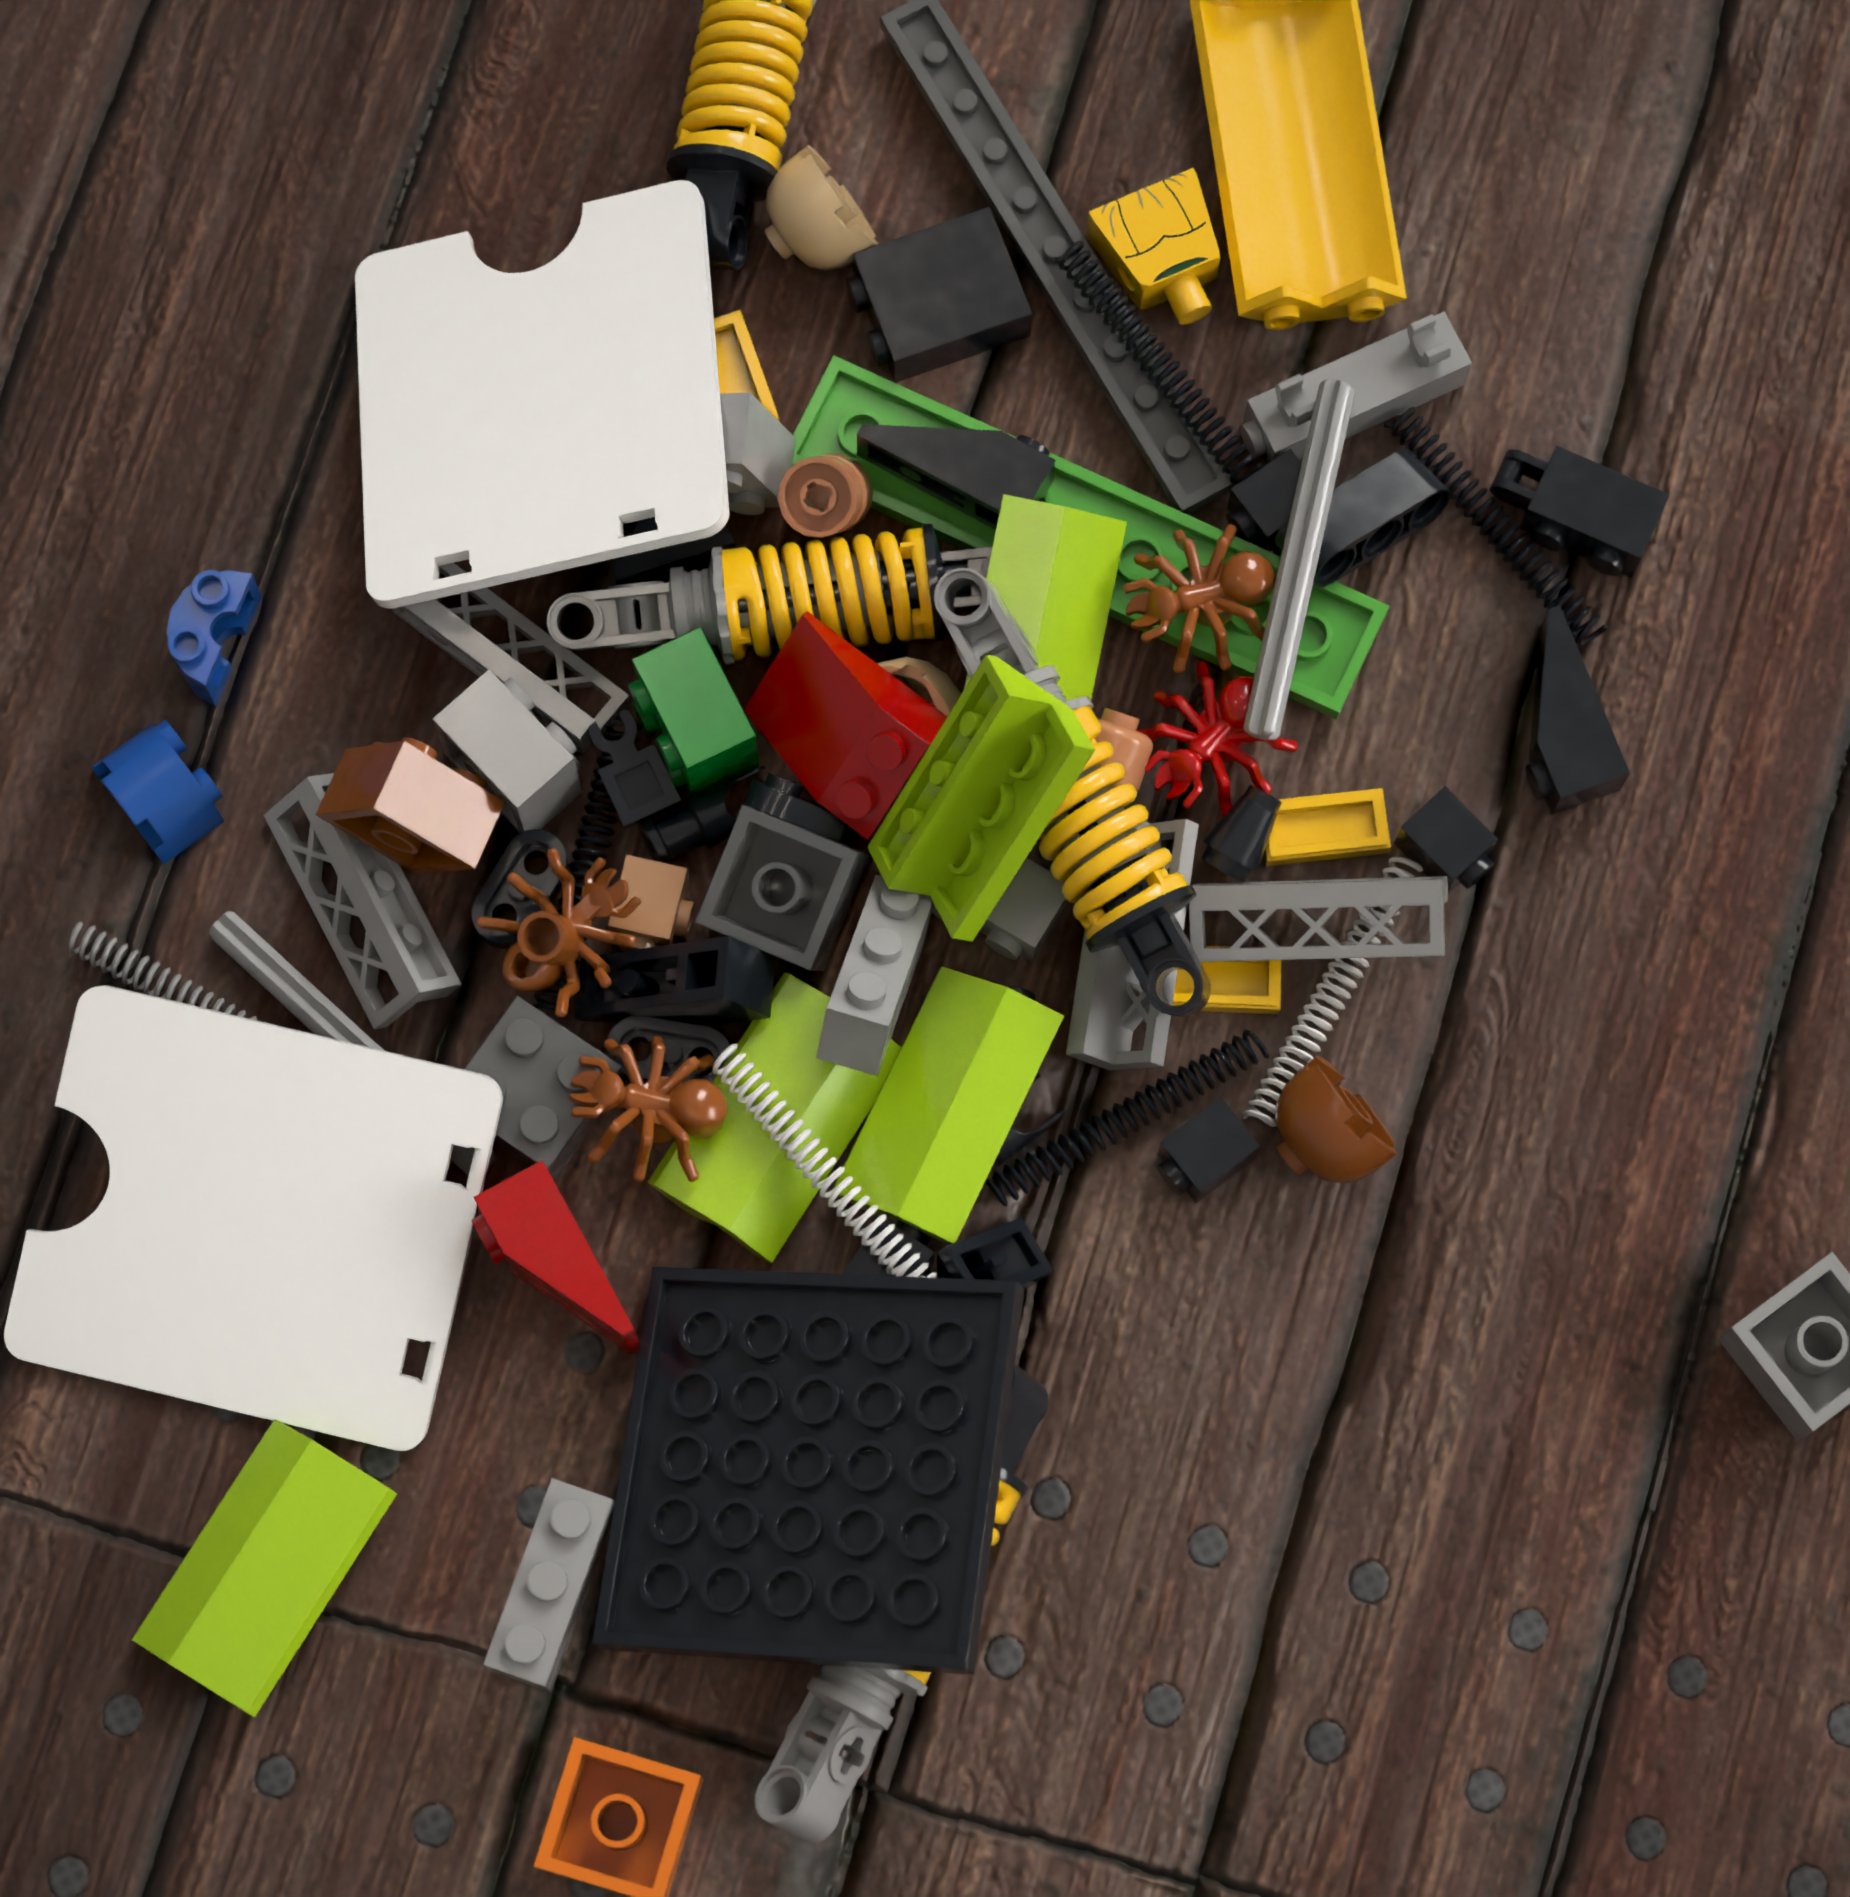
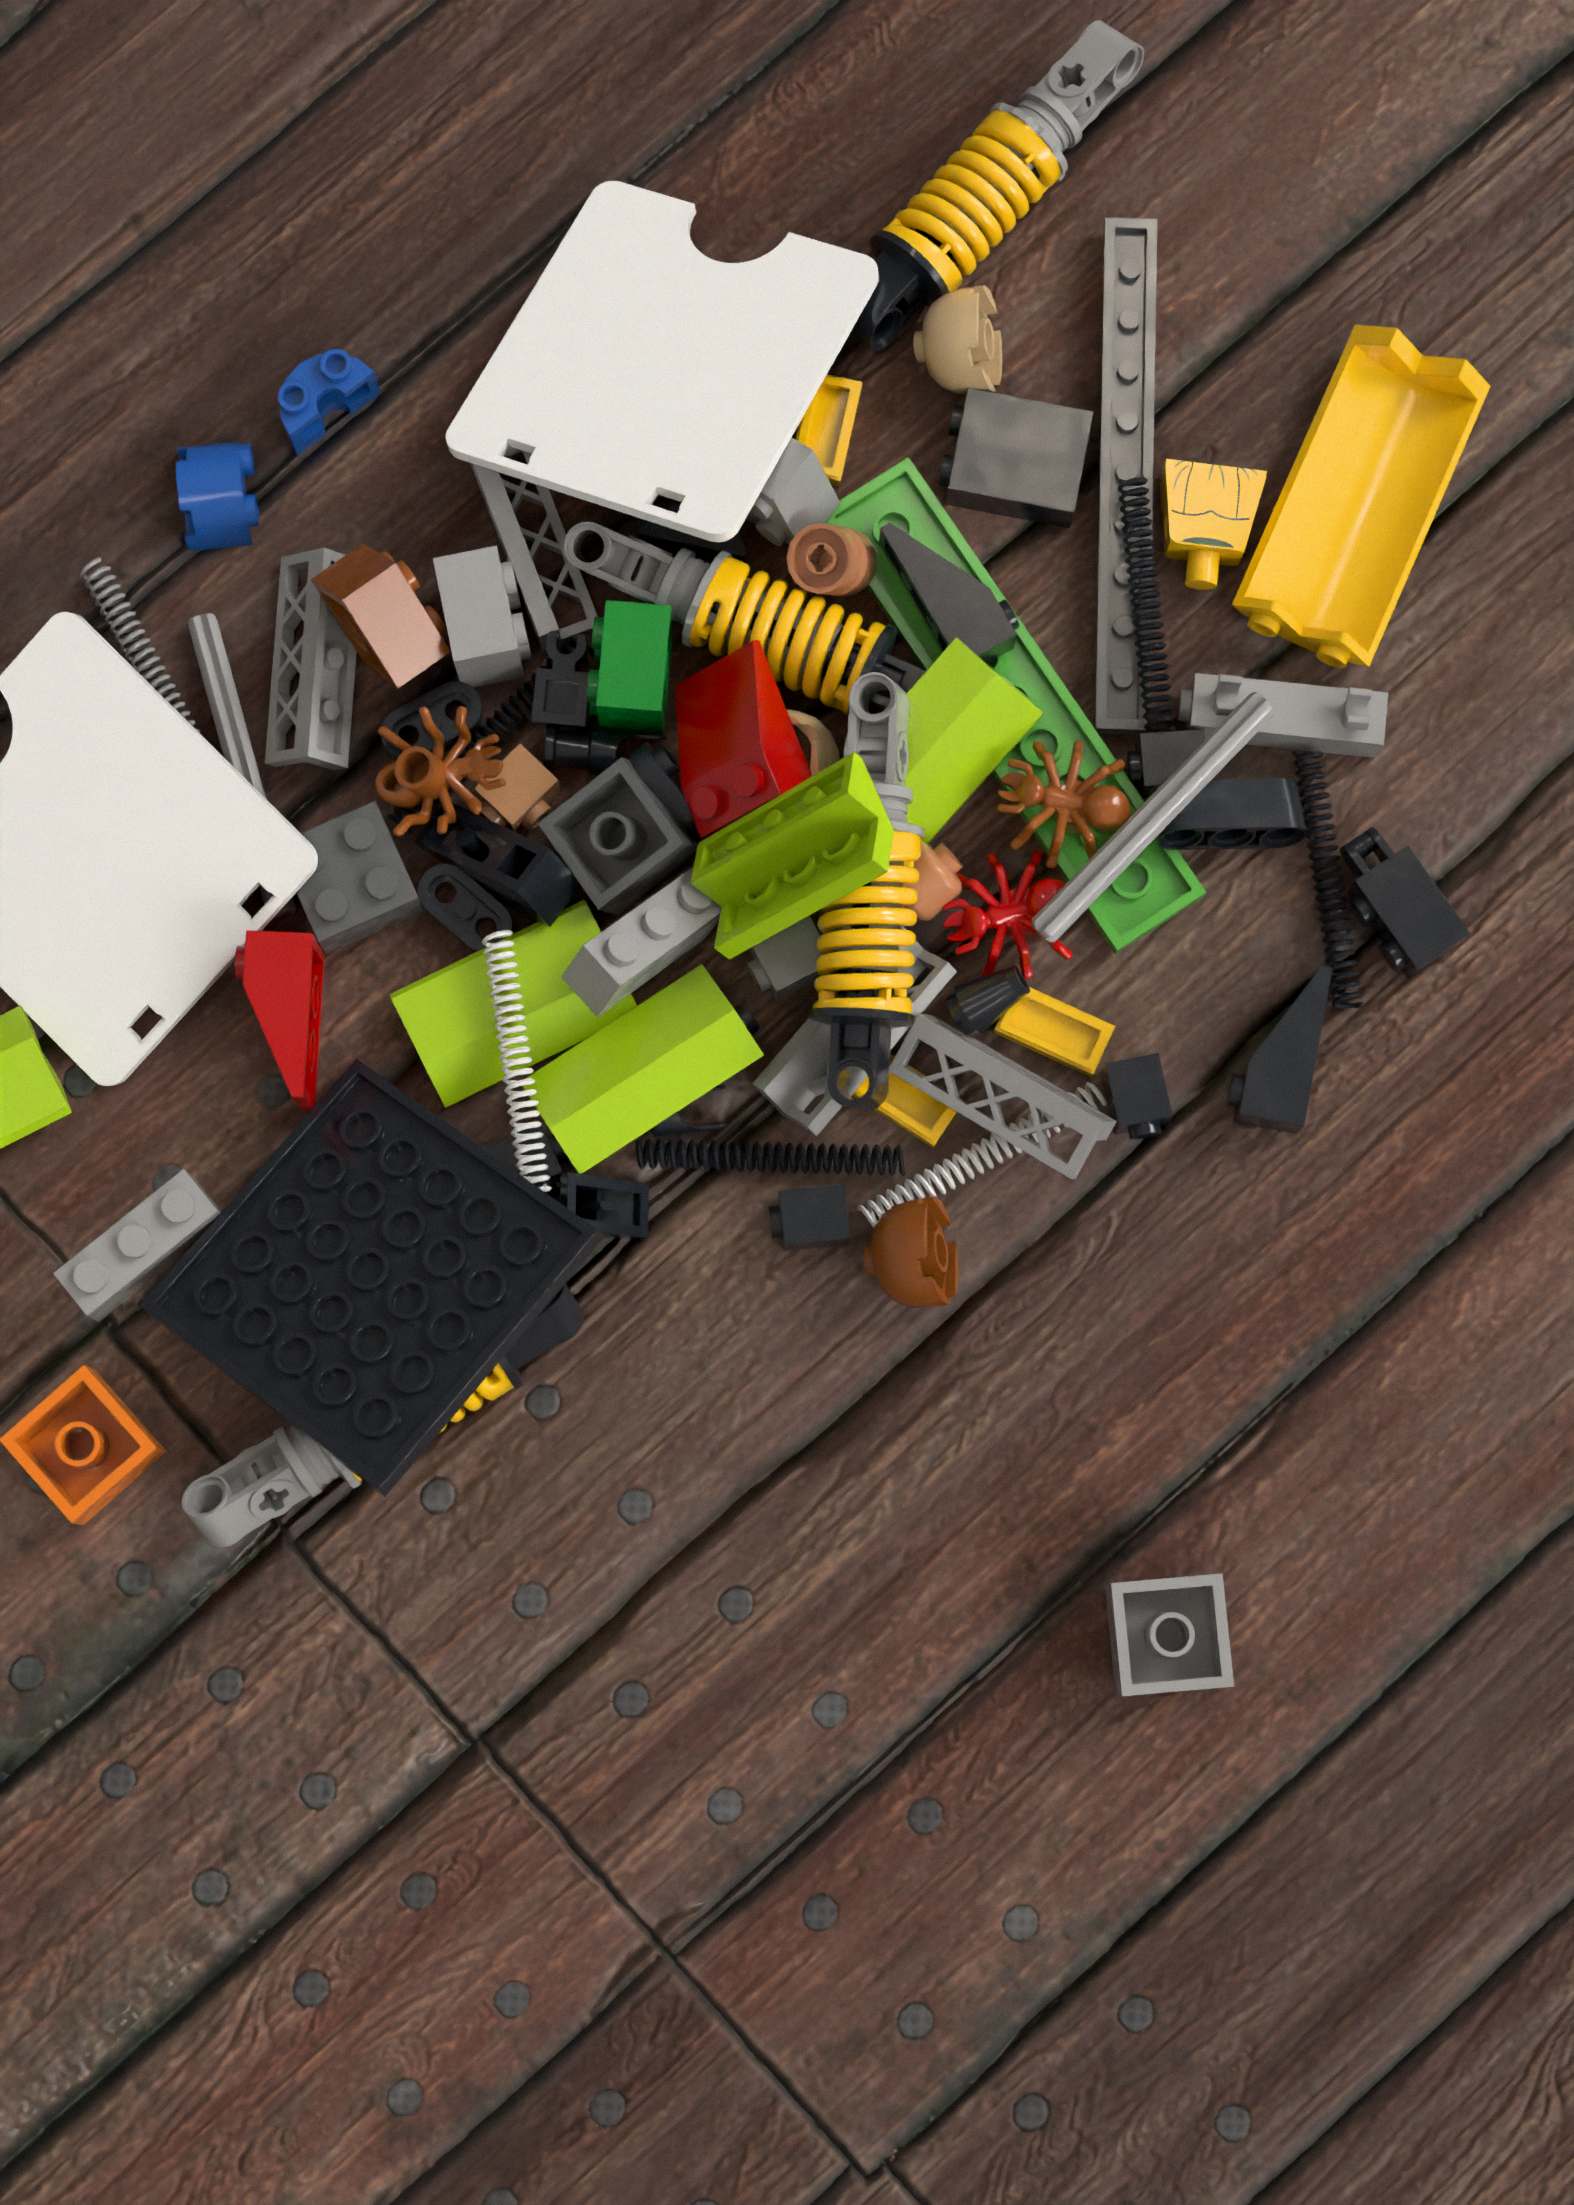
camera: 30 degrees right, 5 degrees up
(658, 1109) = (428, 944): dark orange animal -> none

